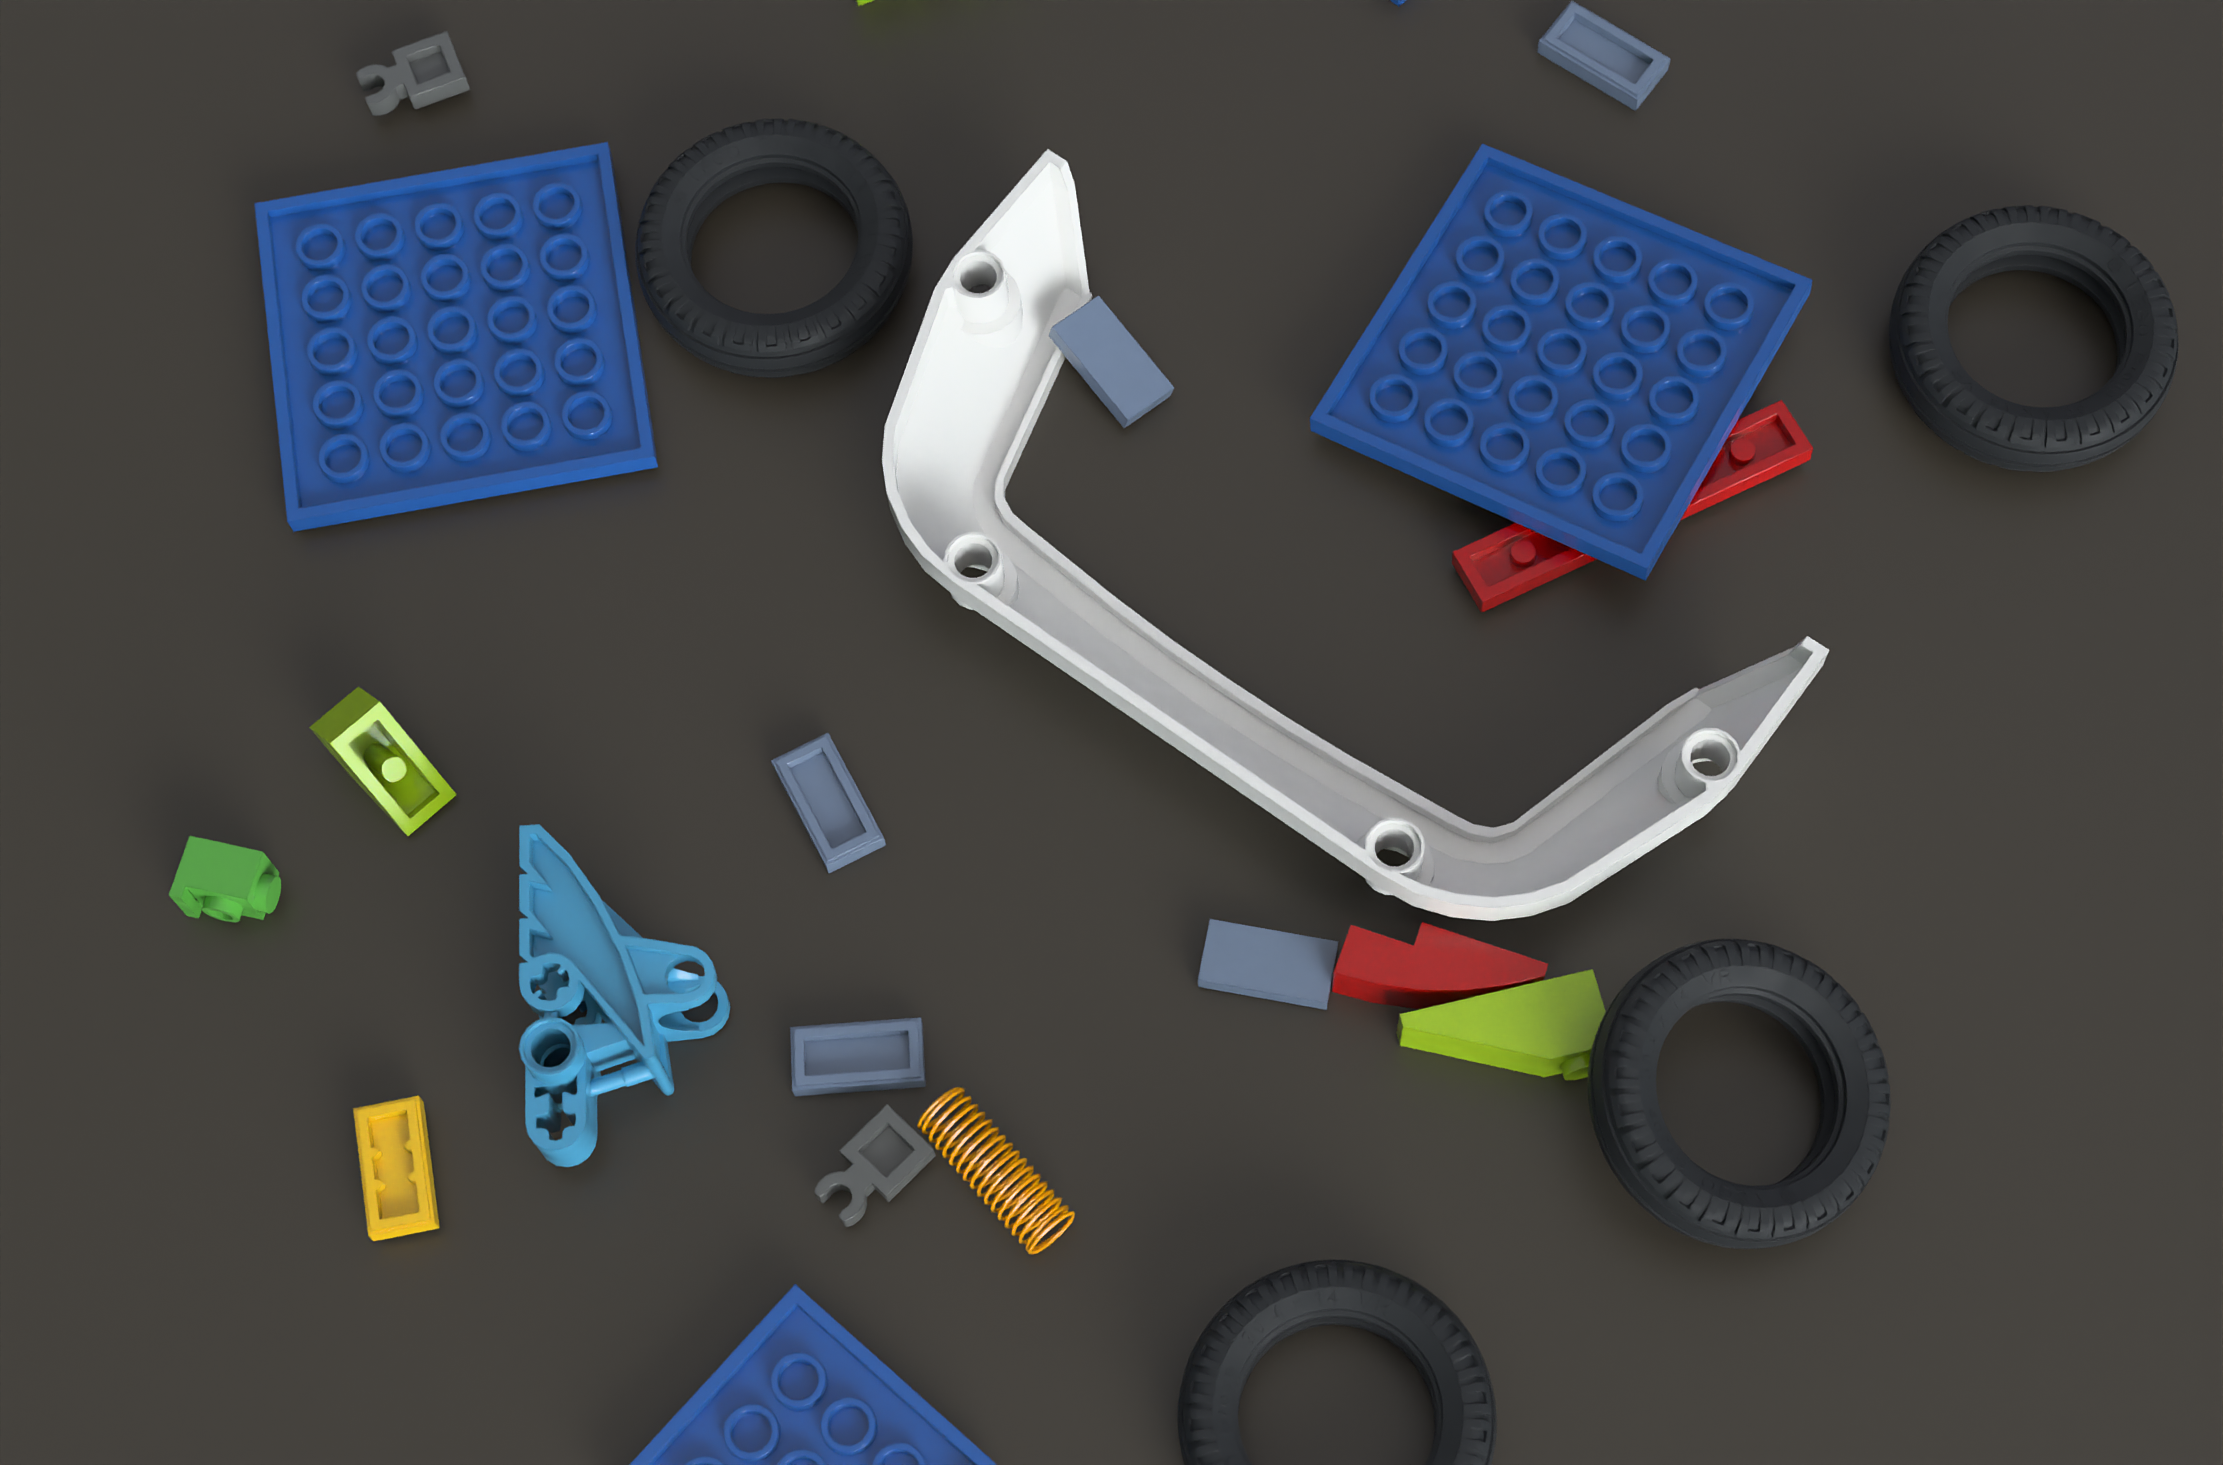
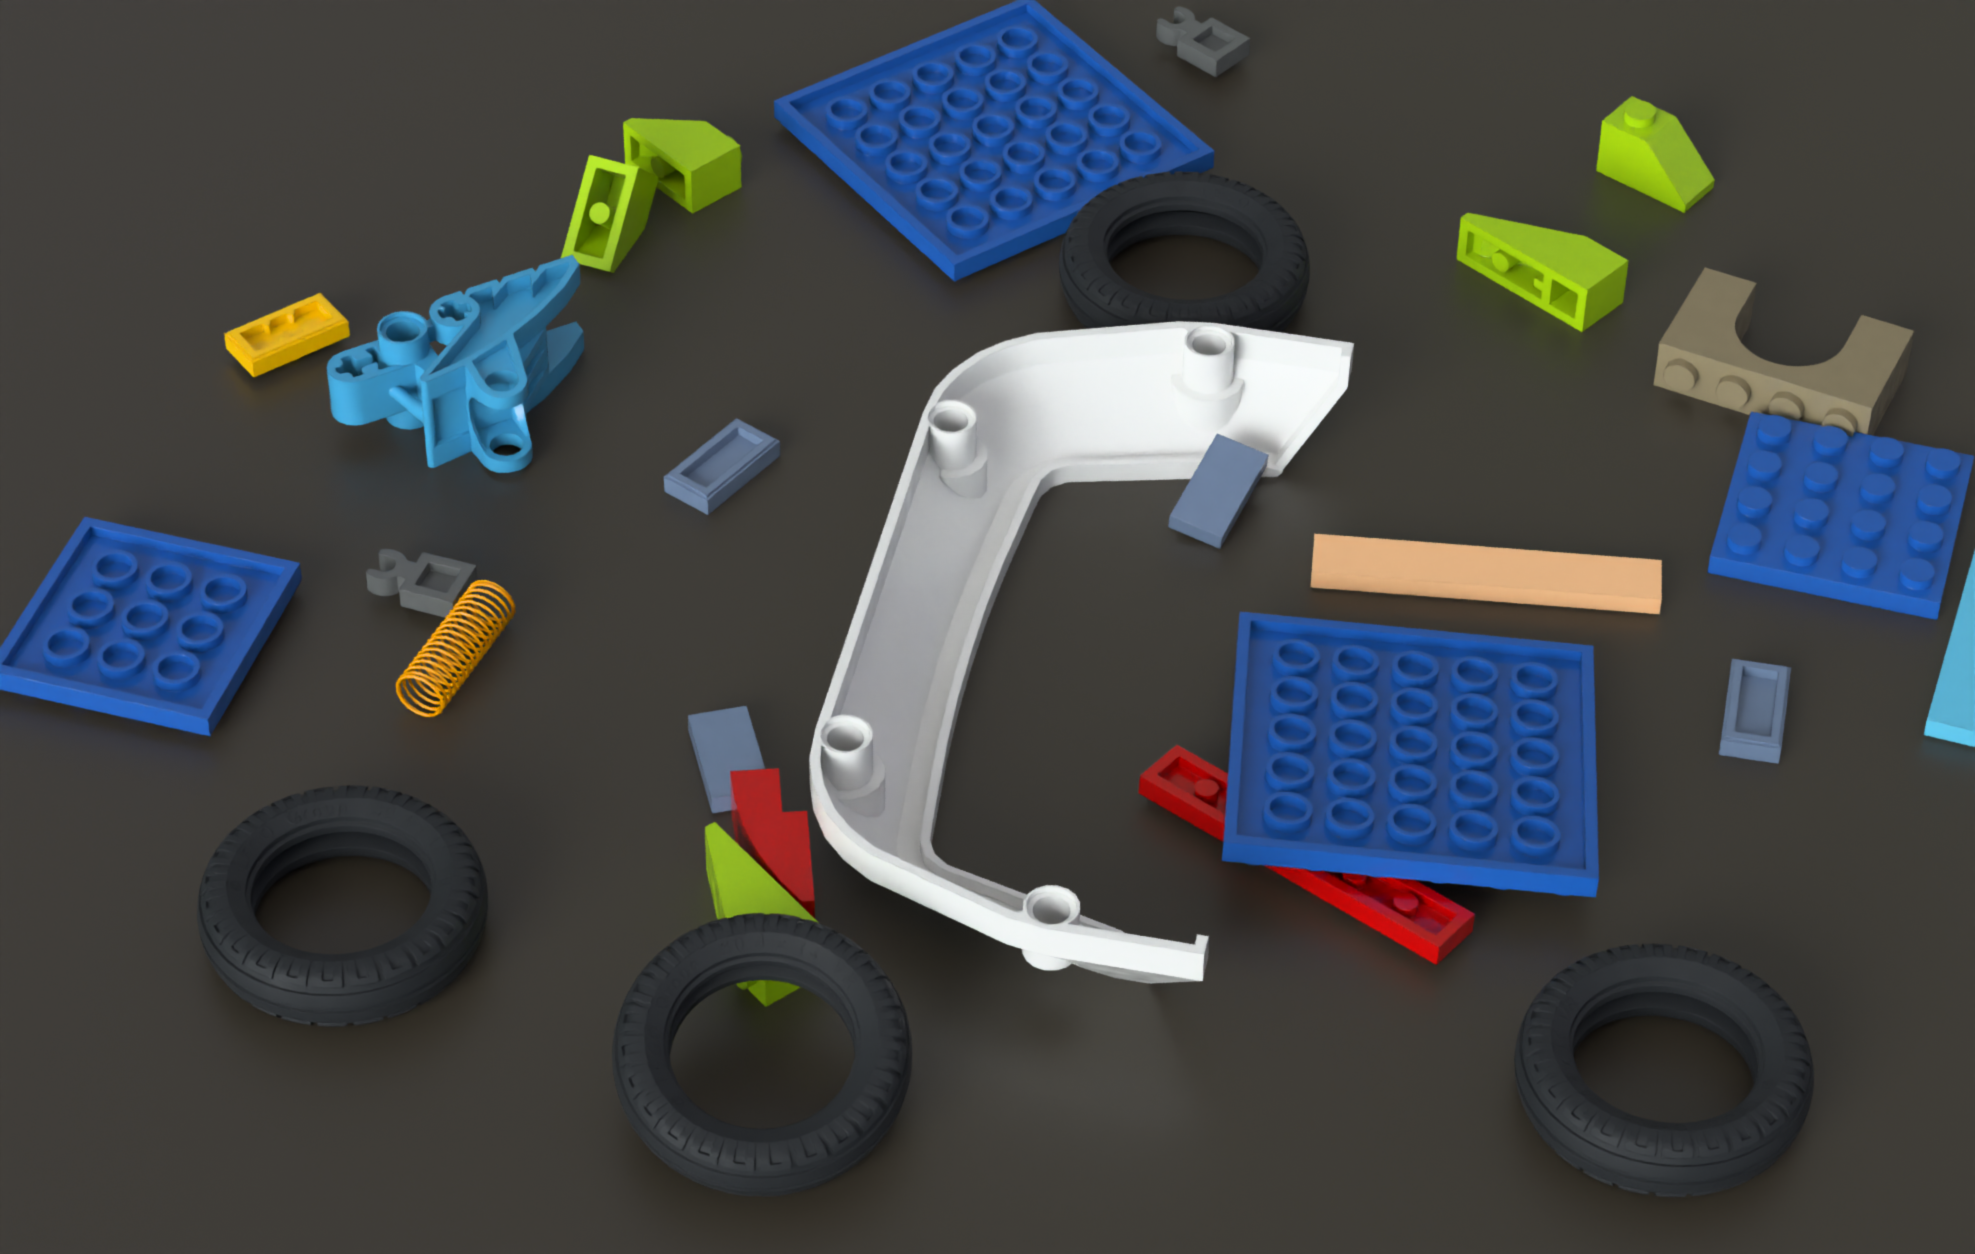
camera: 60 degrees right, 25 degrees down
(225, 881) = (463, 170): bright green brick -> none
(330, 649) = (688, 156): none -> lime slope
(857, 1056) = (514, 551): sand blue tile -> none
(1323, 188) = (1487, 573): none -> light nougat tile

